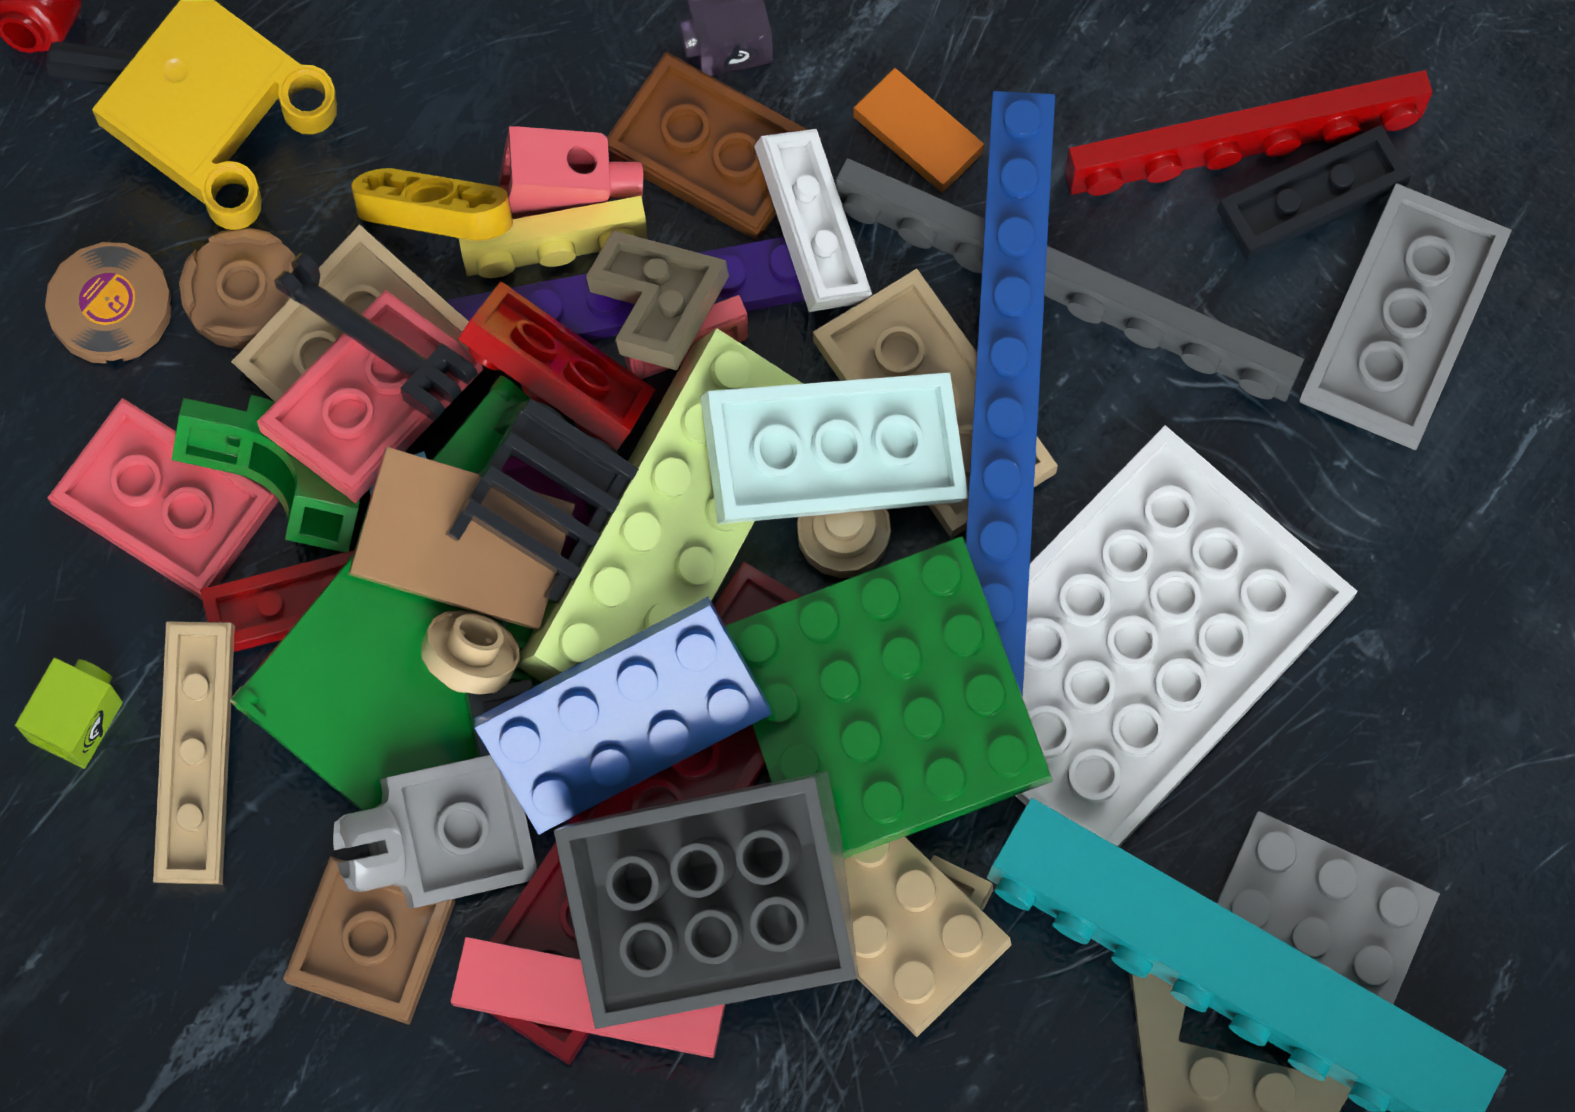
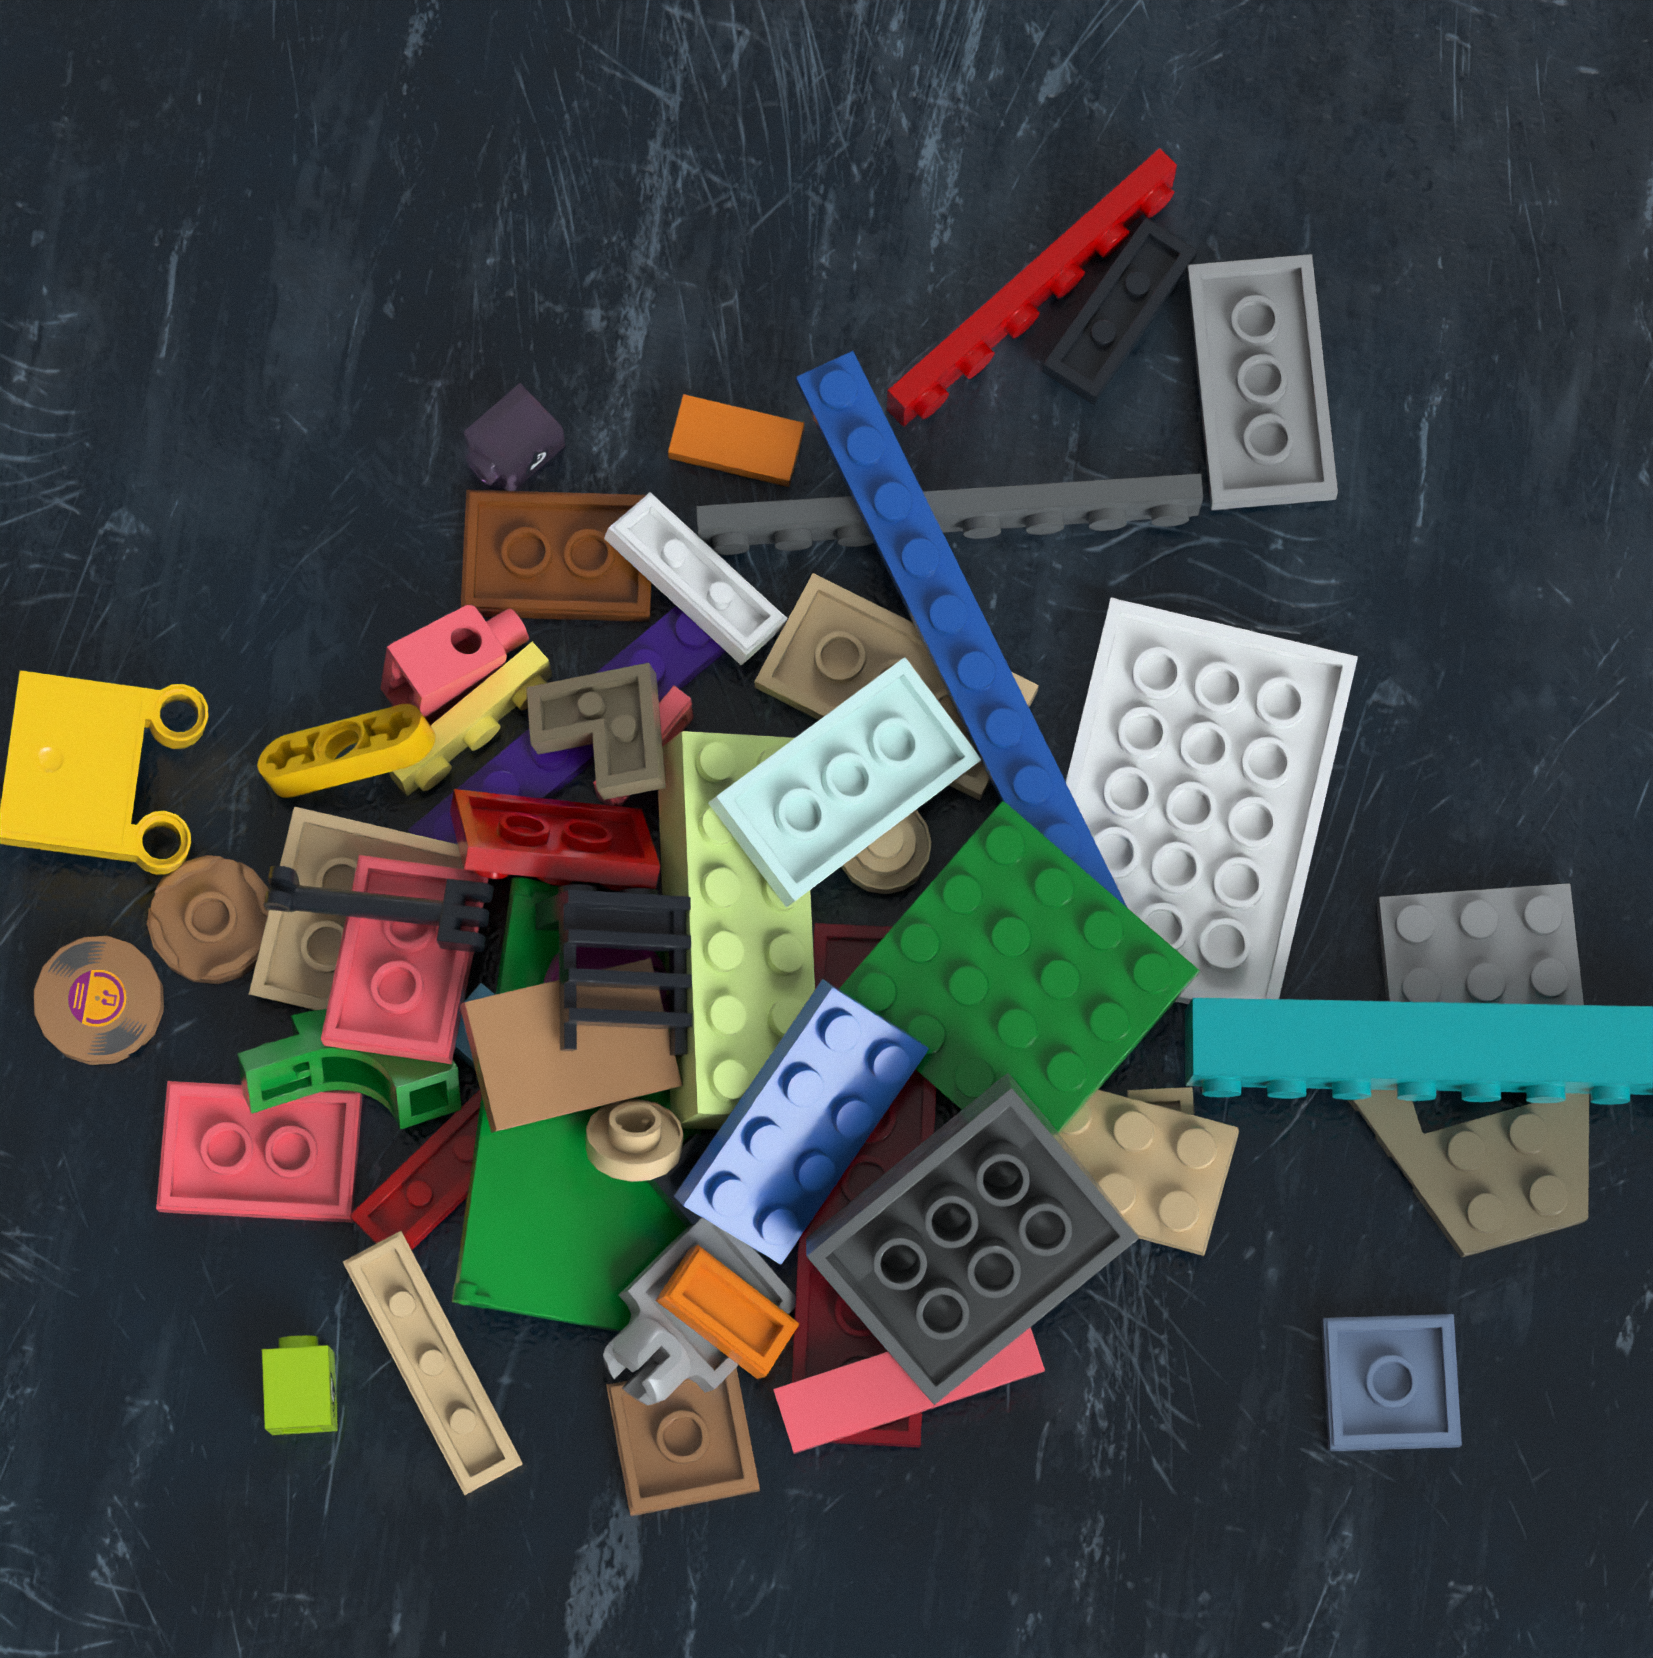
camera: 30 degrees left, 5 degrees up
(465, 847) = (727, 1312): none -> orange tile

